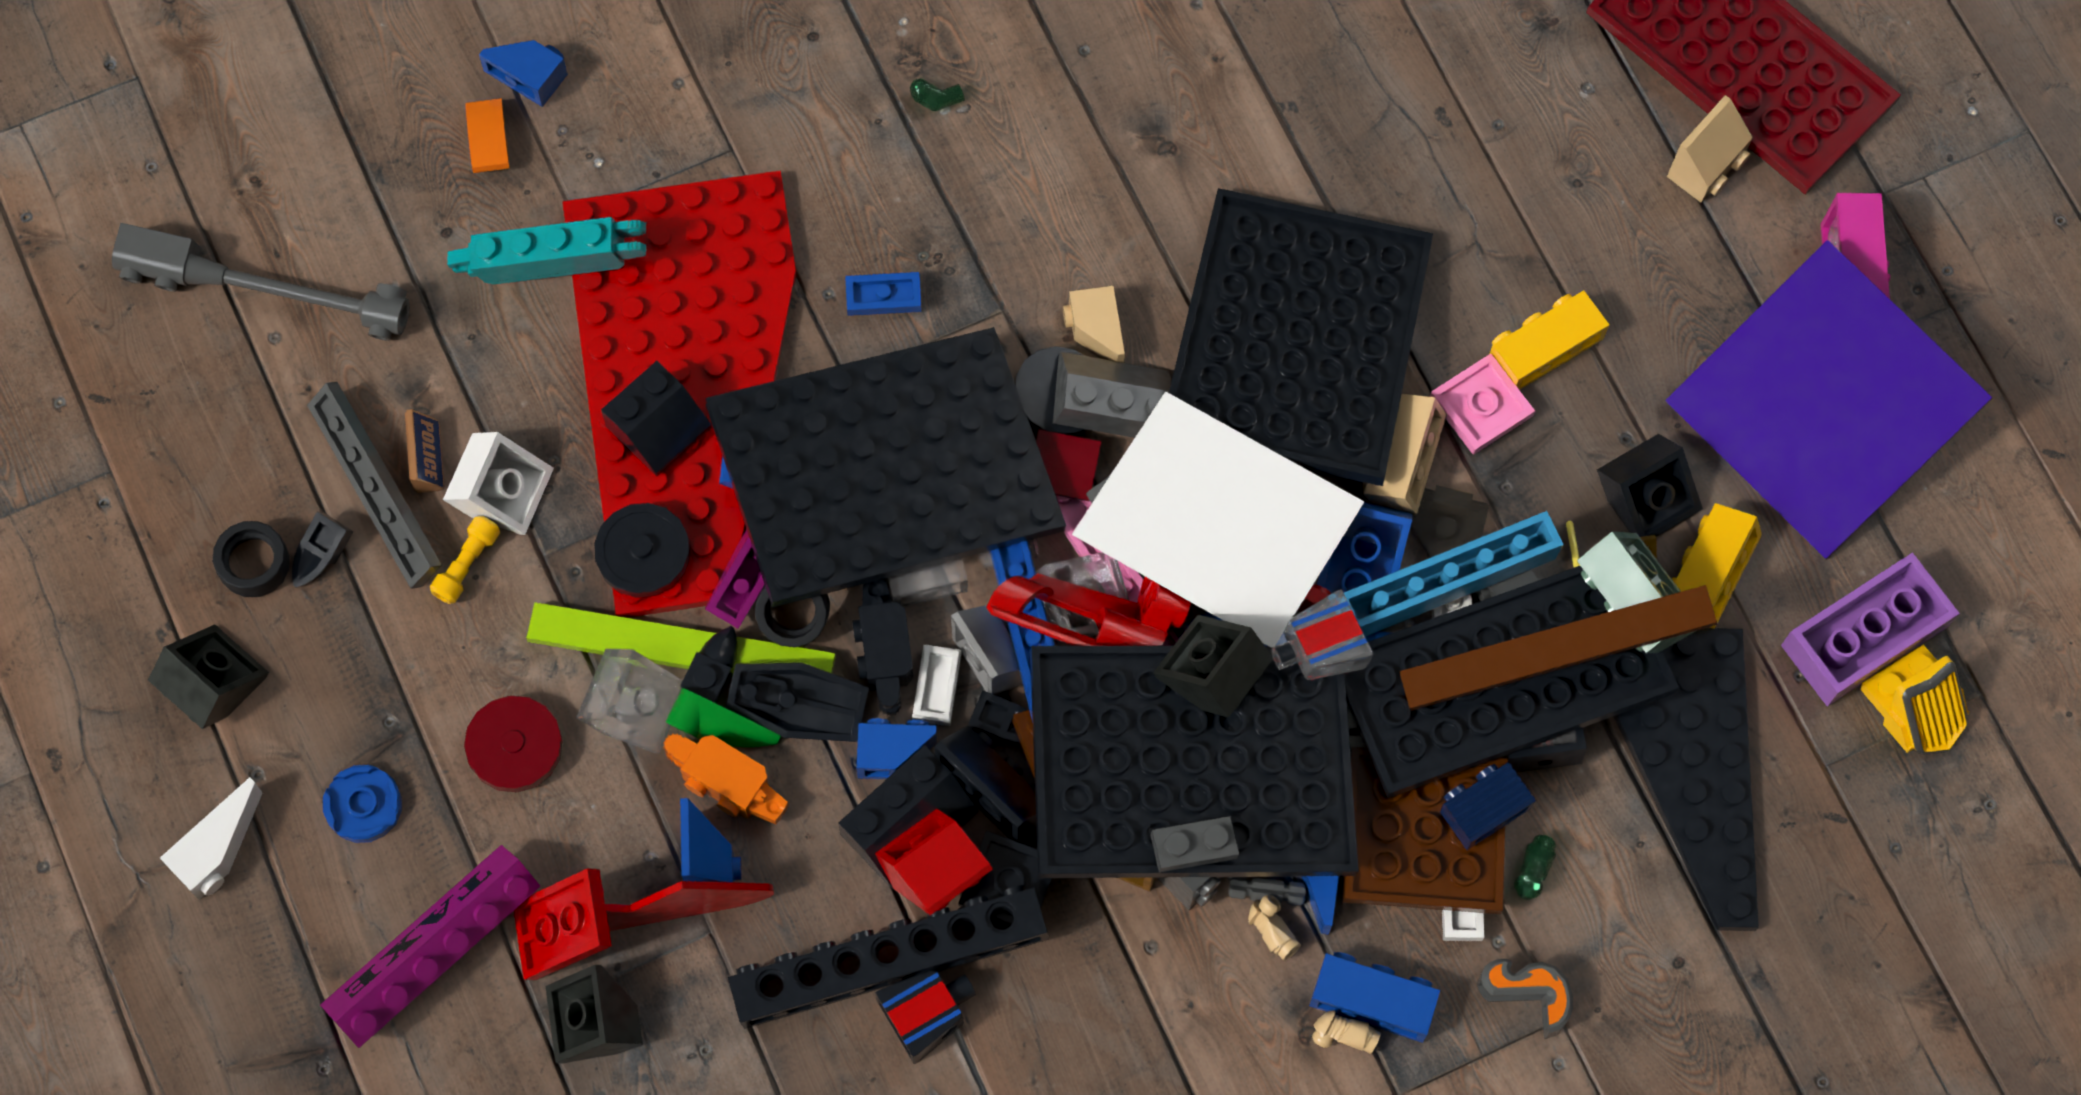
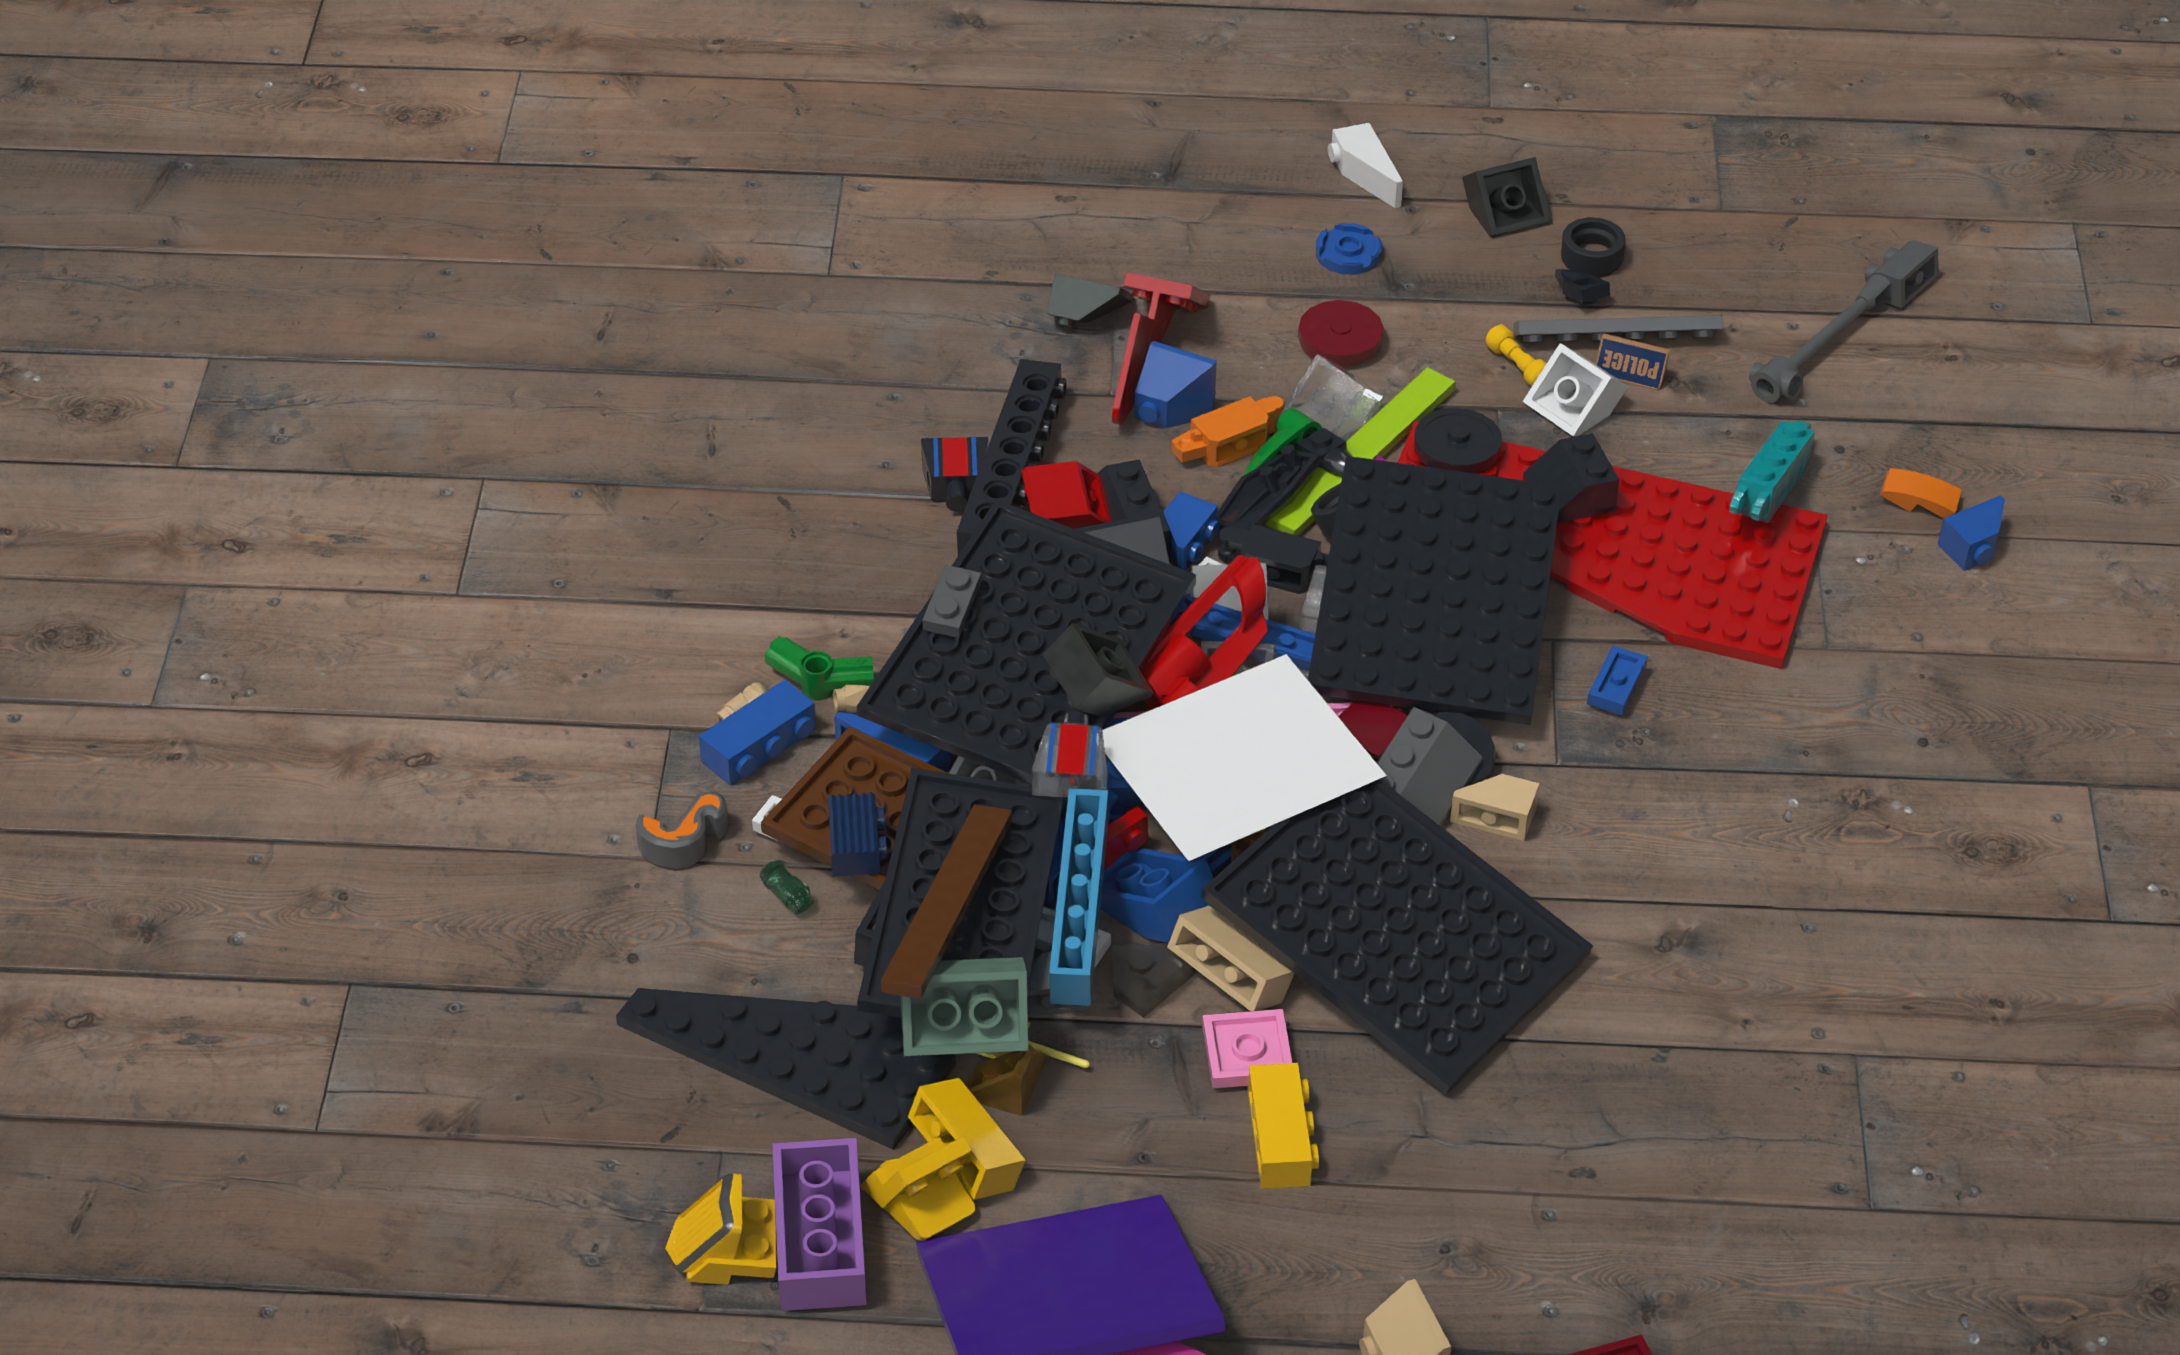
camera: 120 degrees right, 25 degrees down
(430, 945) = (1205, 234): magenta brick -> none
(933, 97) = (1813, 784): clear green arm -> none
(1267, 1009) = (816, 669): none -> green piece
(1651, 487) = (1078, 1131): black slope -> none
(1780, 580) = (923, 1188): none -> yellow piece

